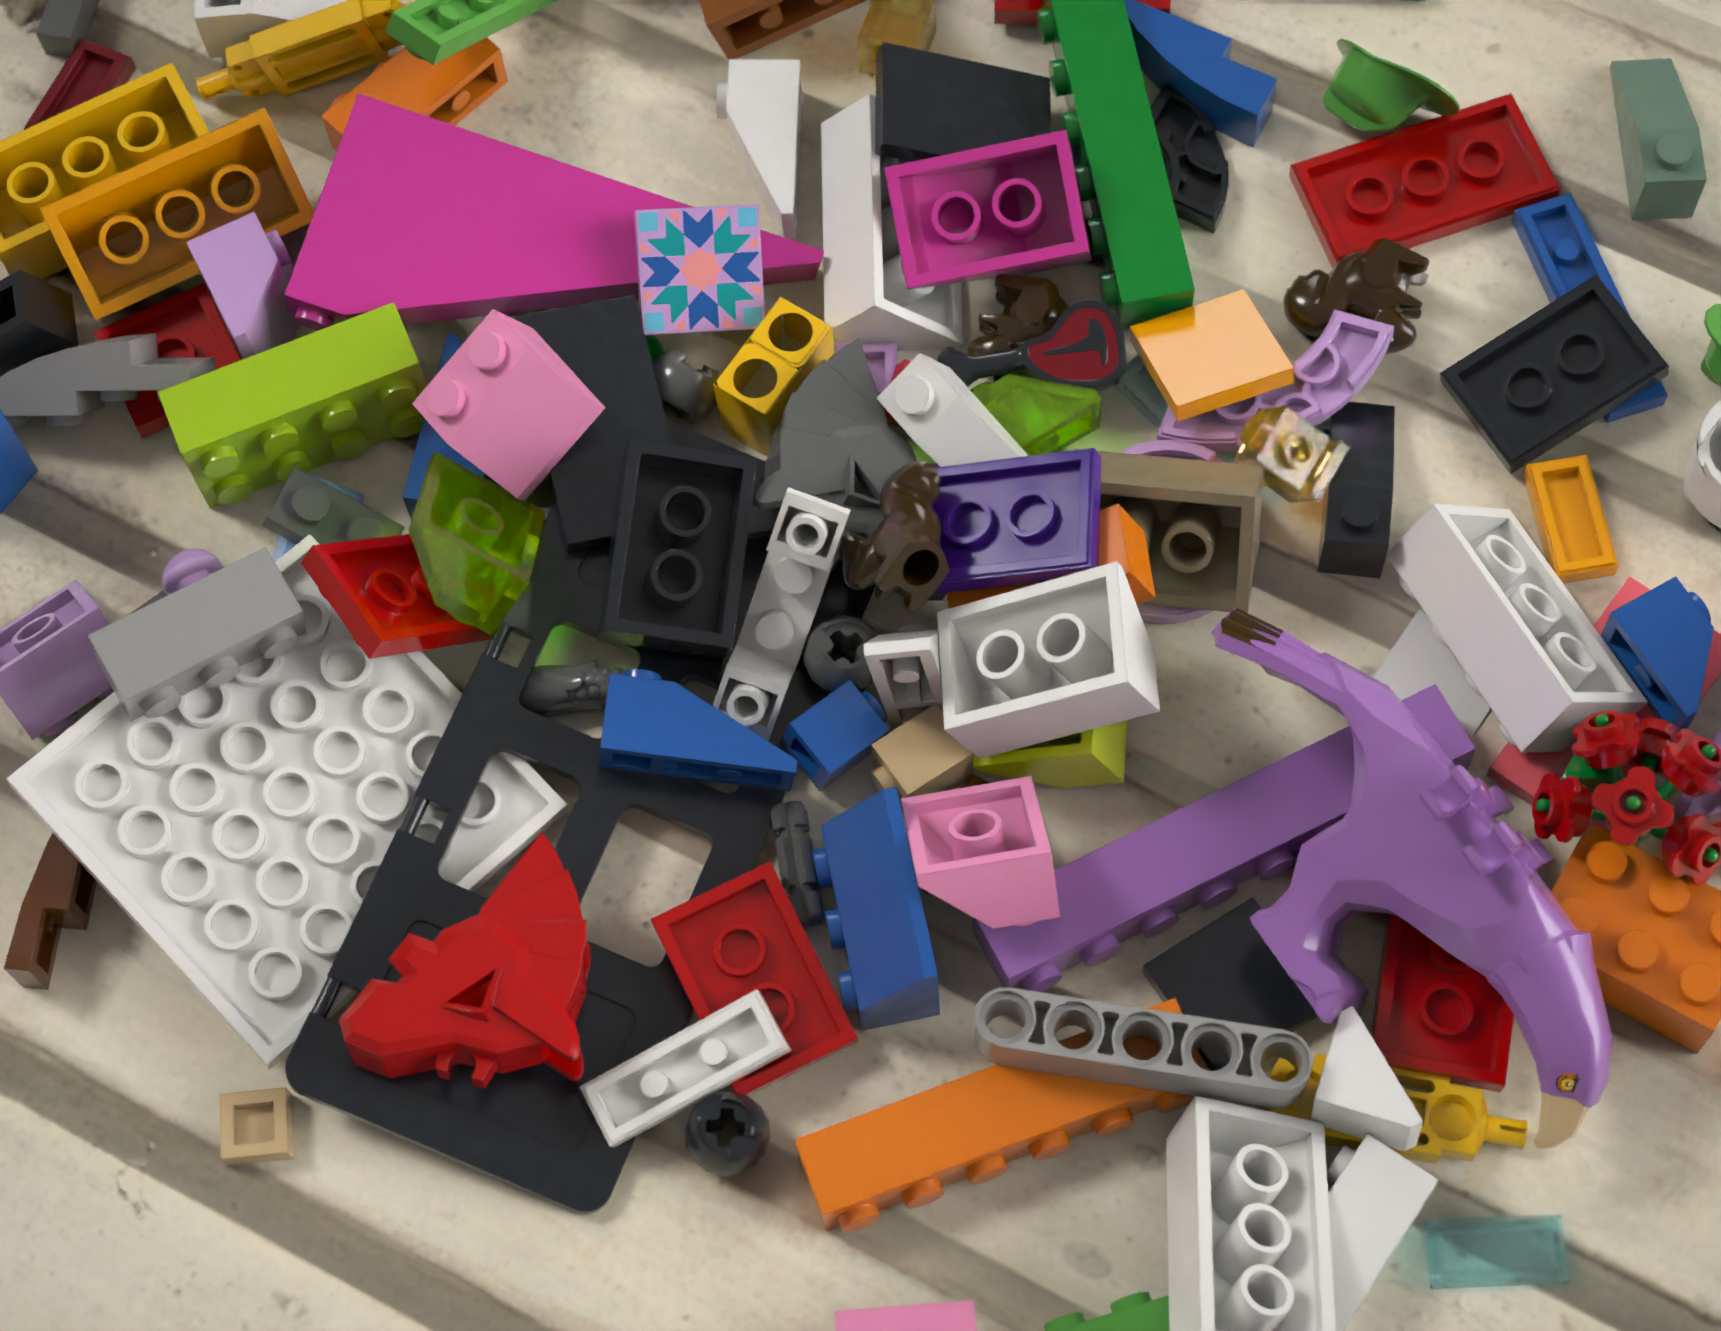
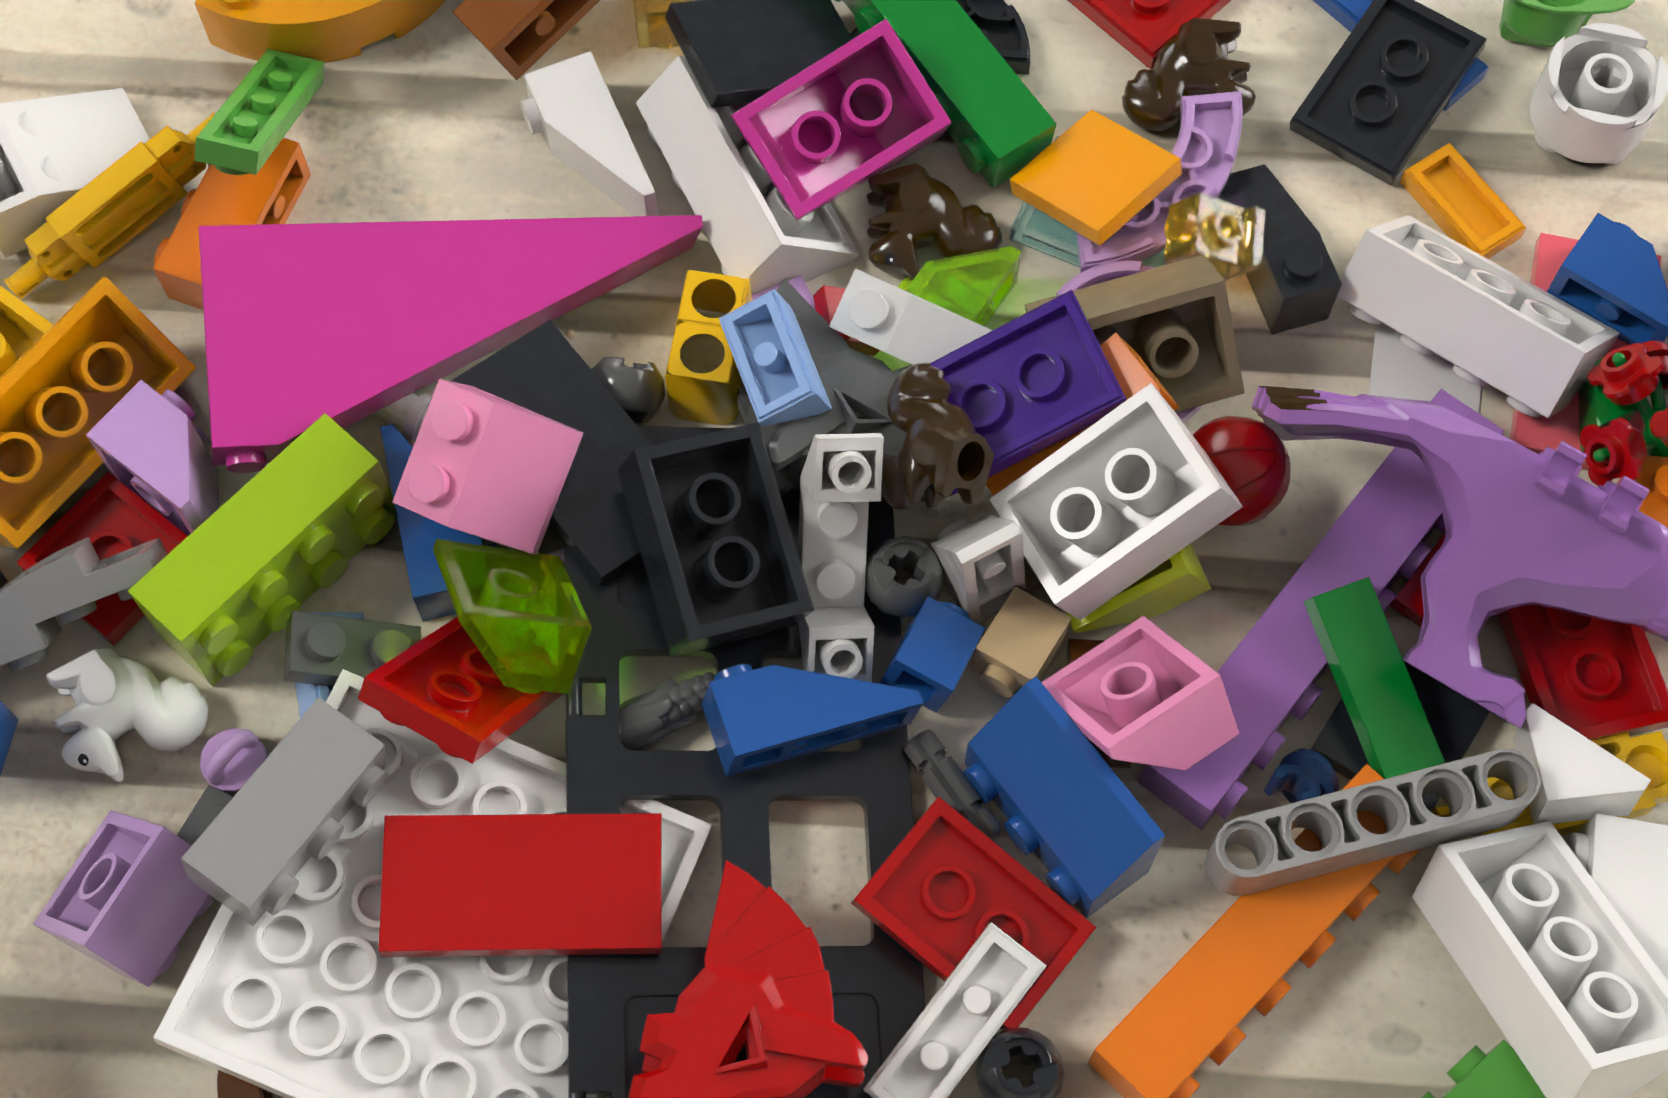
camera: 30 degrees left, 0 degrees up
(118, 484) = (115, 697): none -> white animal
(370, 783) = (521, 885): none -> red tile
(699, 269) = (599, 272): tile -> none
(806, 409) = (774, 361): none -> light blue slope
(1079, 350) = (978, 216): piece -> none
(1117, 984) = (1303, 776): none -> dark blue plate
(1201, 685) = (1250, 462): none -> red piece
(1218, 922) = (1373, 680): none -> green tile

